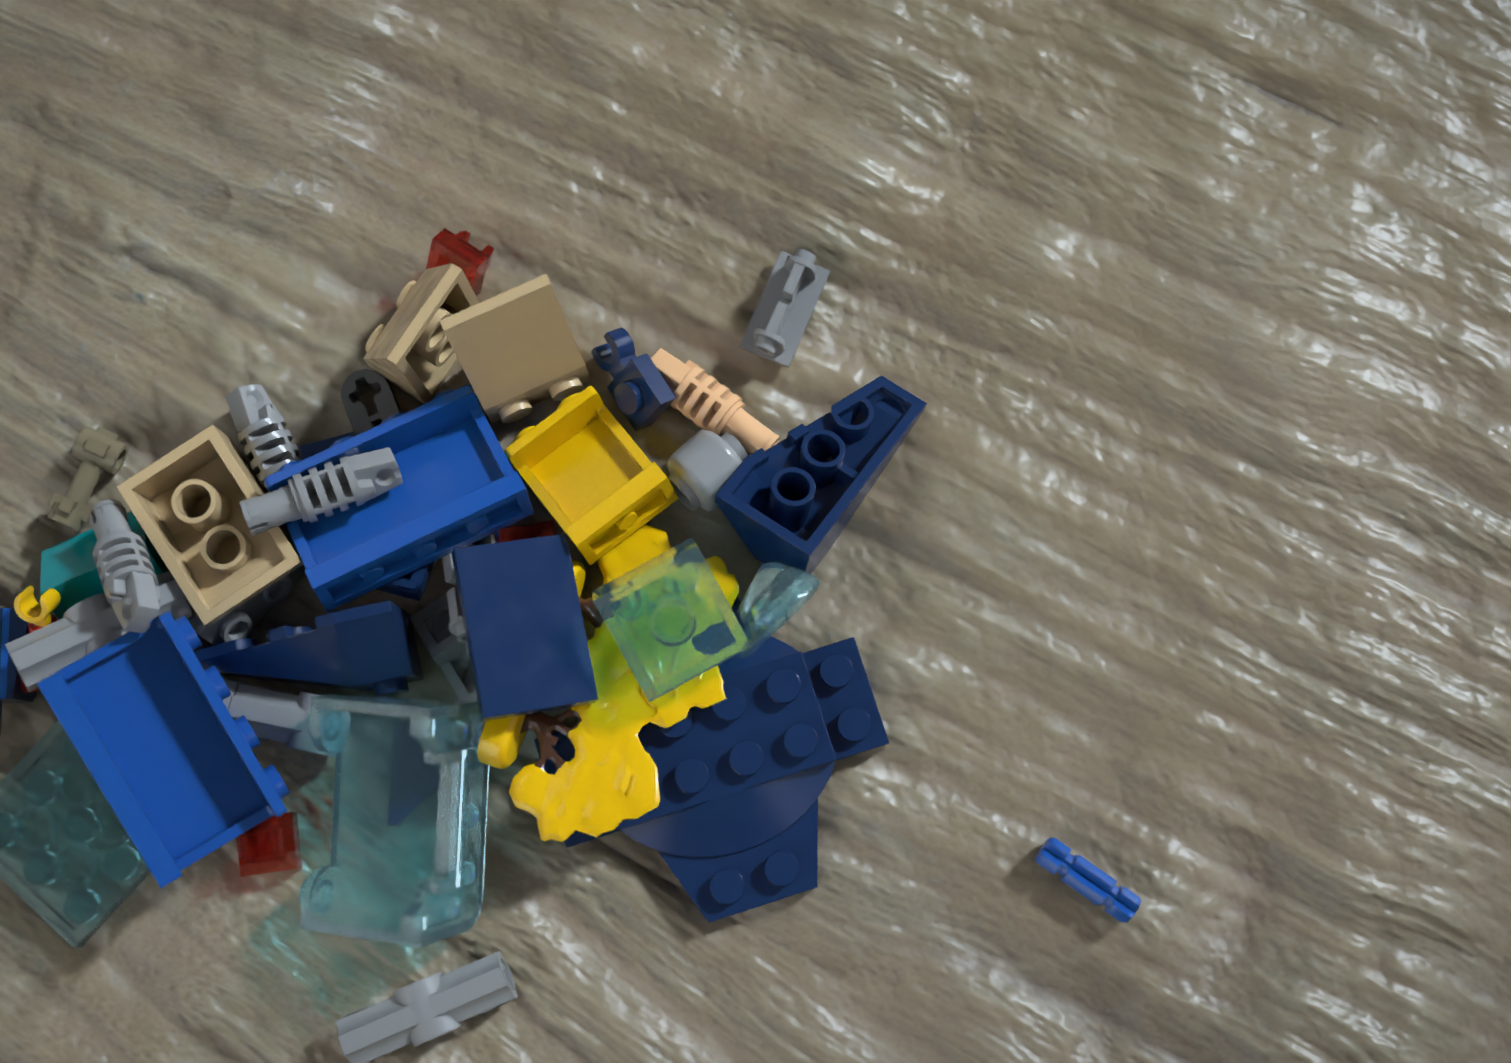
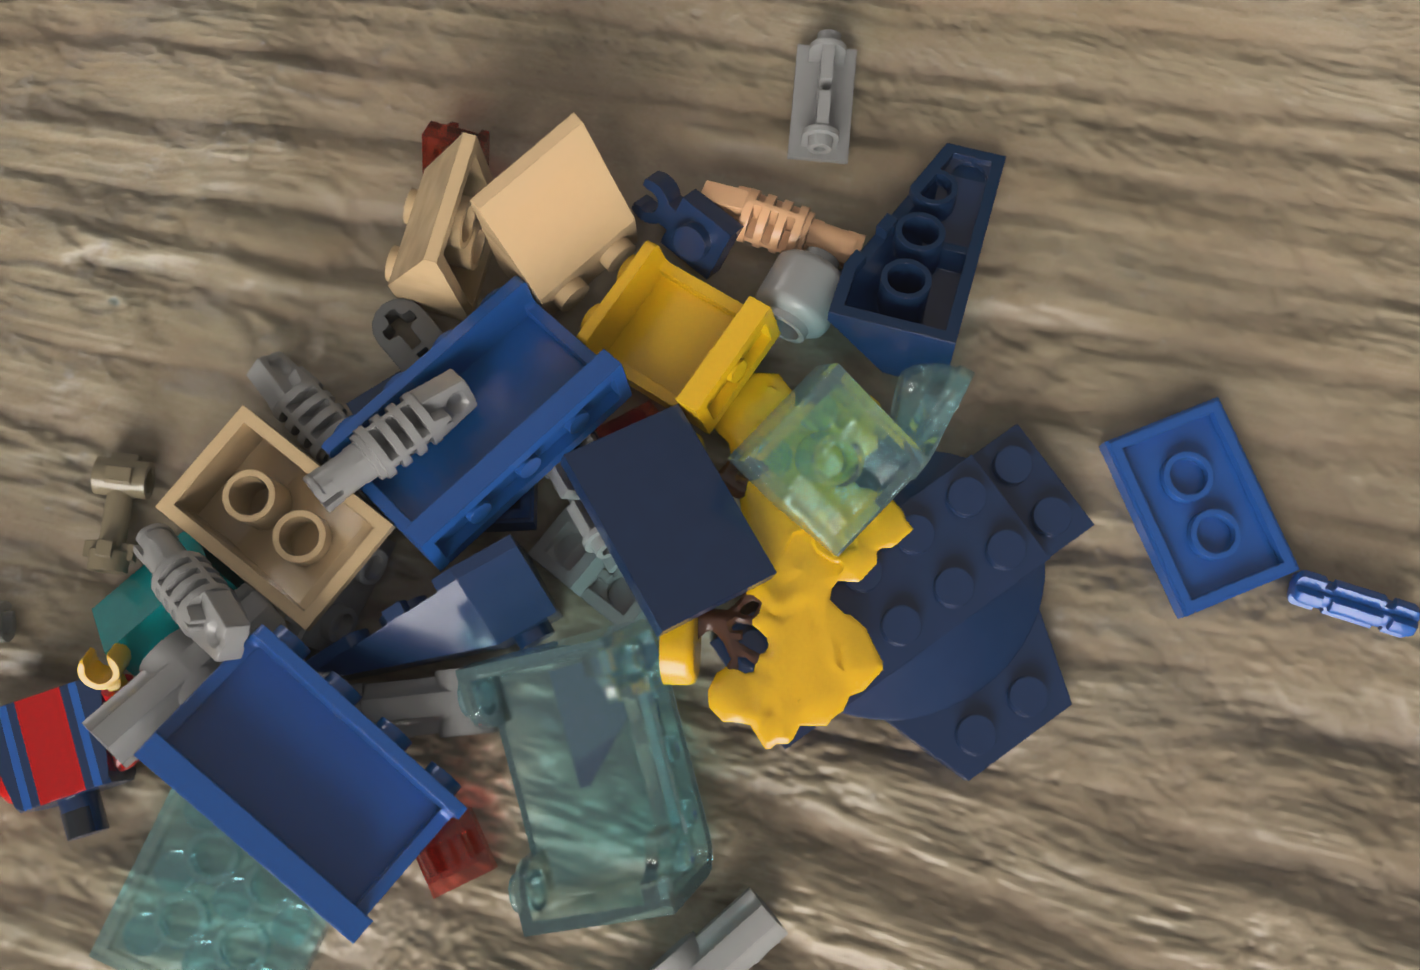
camera: 20 degrees left, 0 degrees up
(986, 756) = (1198, 508): none -> blue tile

